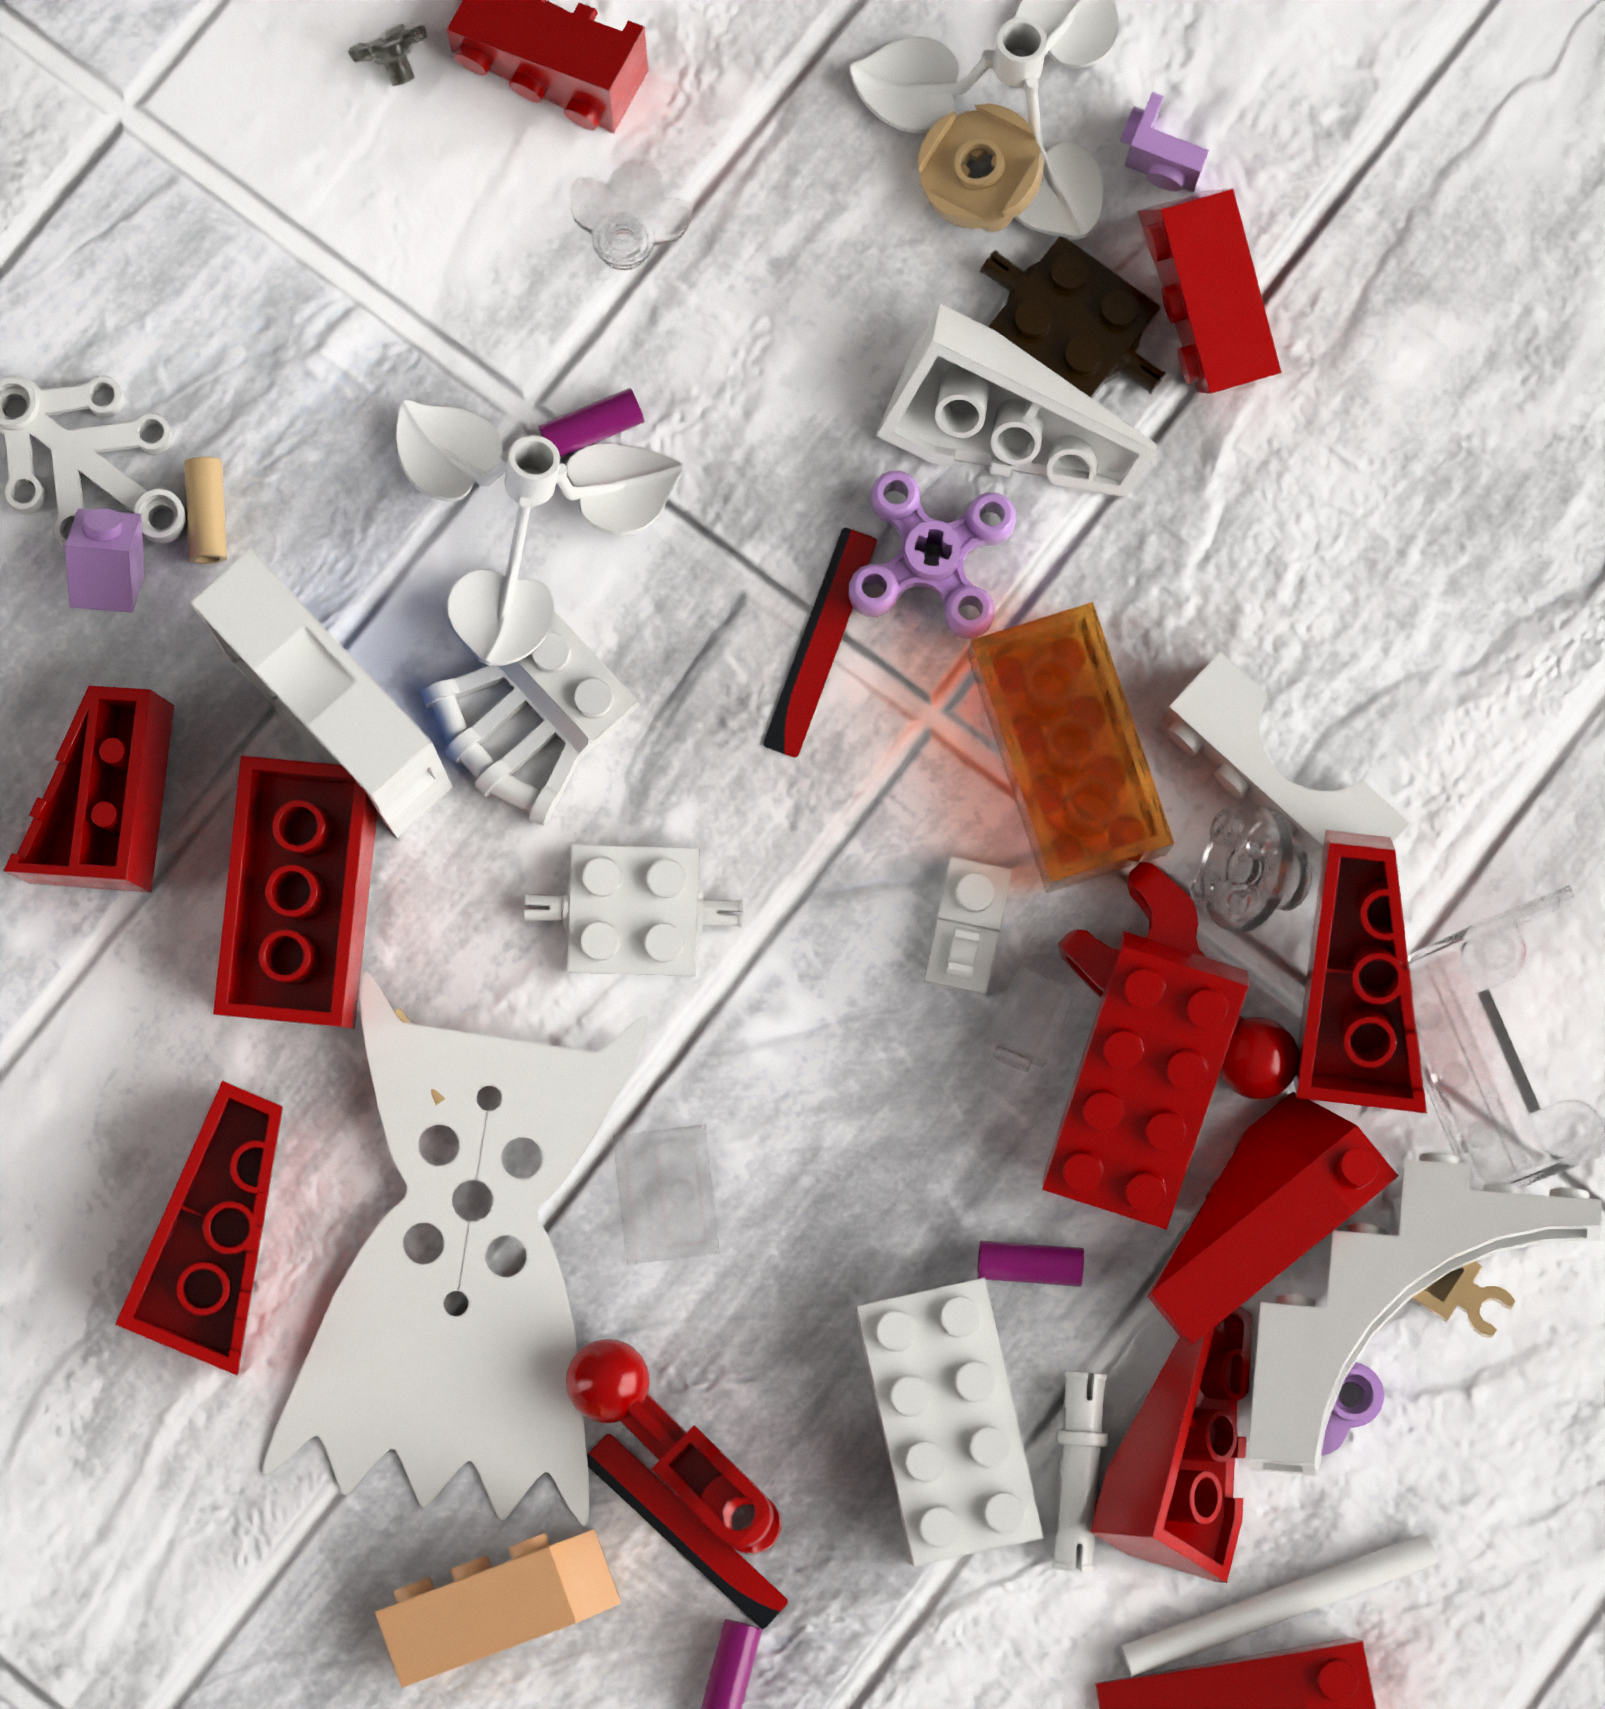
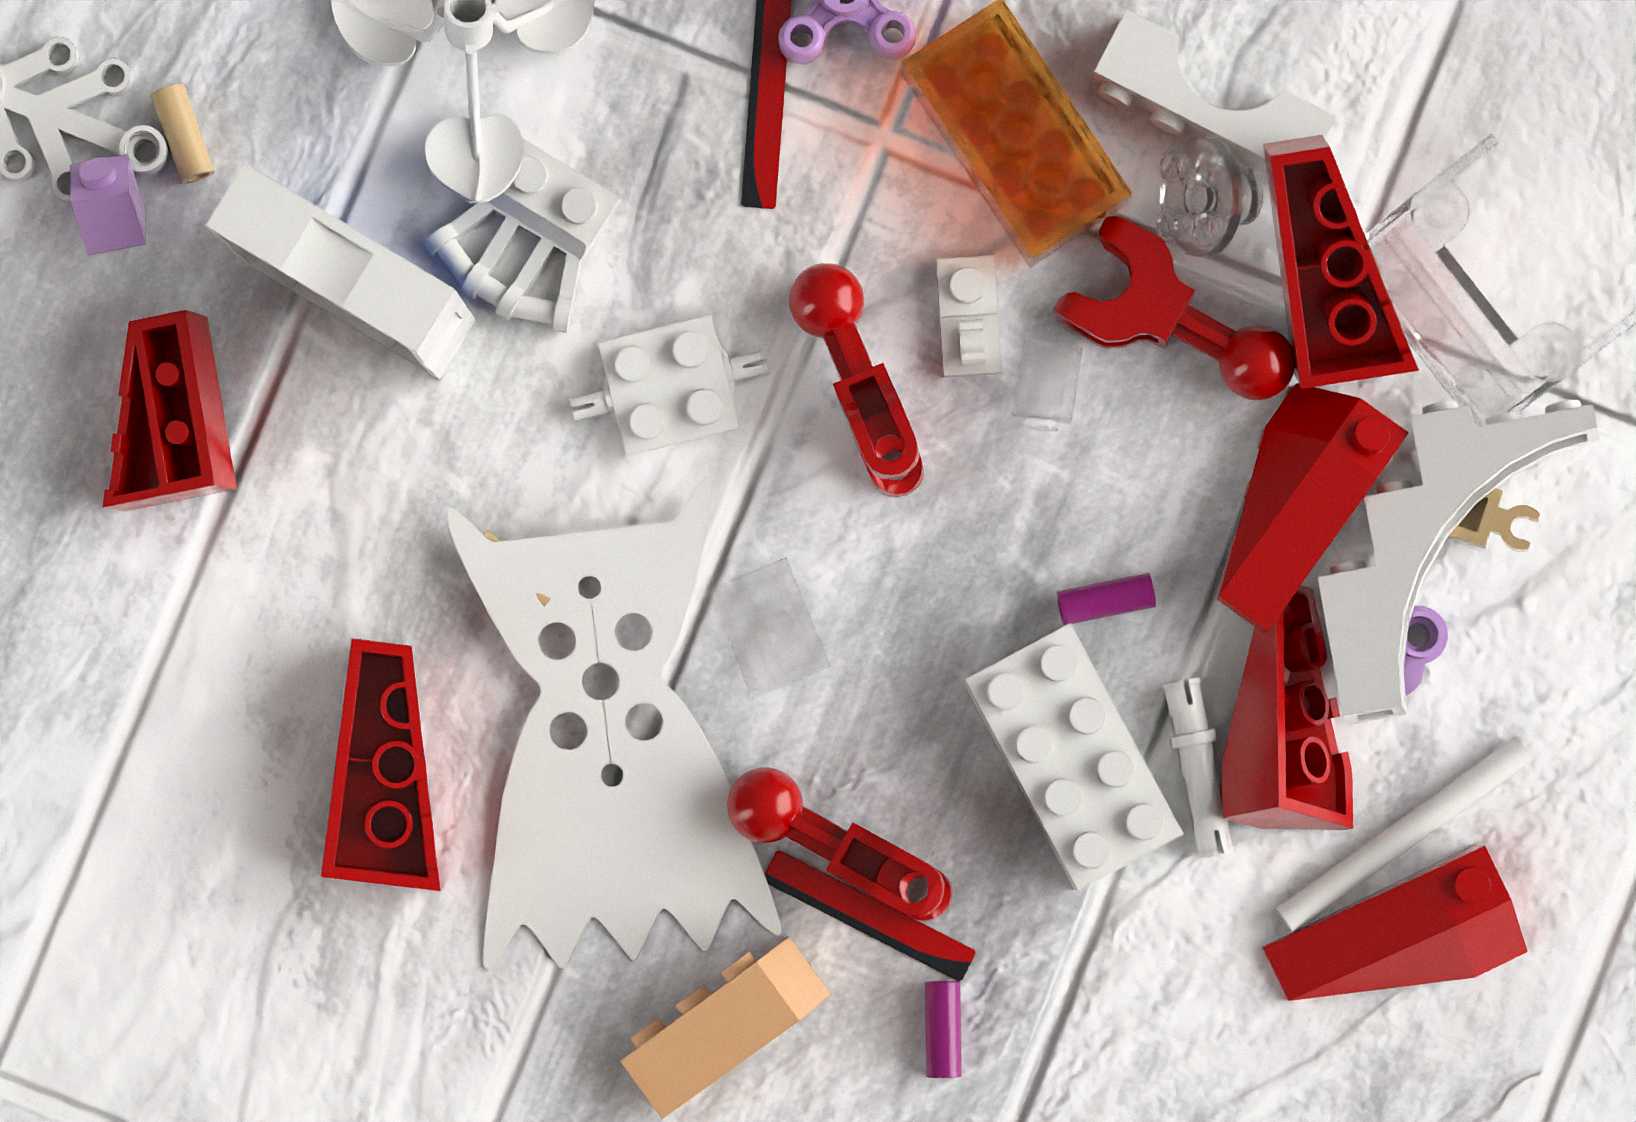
camera: 10 degrees left, 5 degrees up
(296, 894) = (367, 455): red brick -> none
(823, 872) = (828, 304): none -> red piece
(1145, 1080) = (1164, 409): red brick -> none

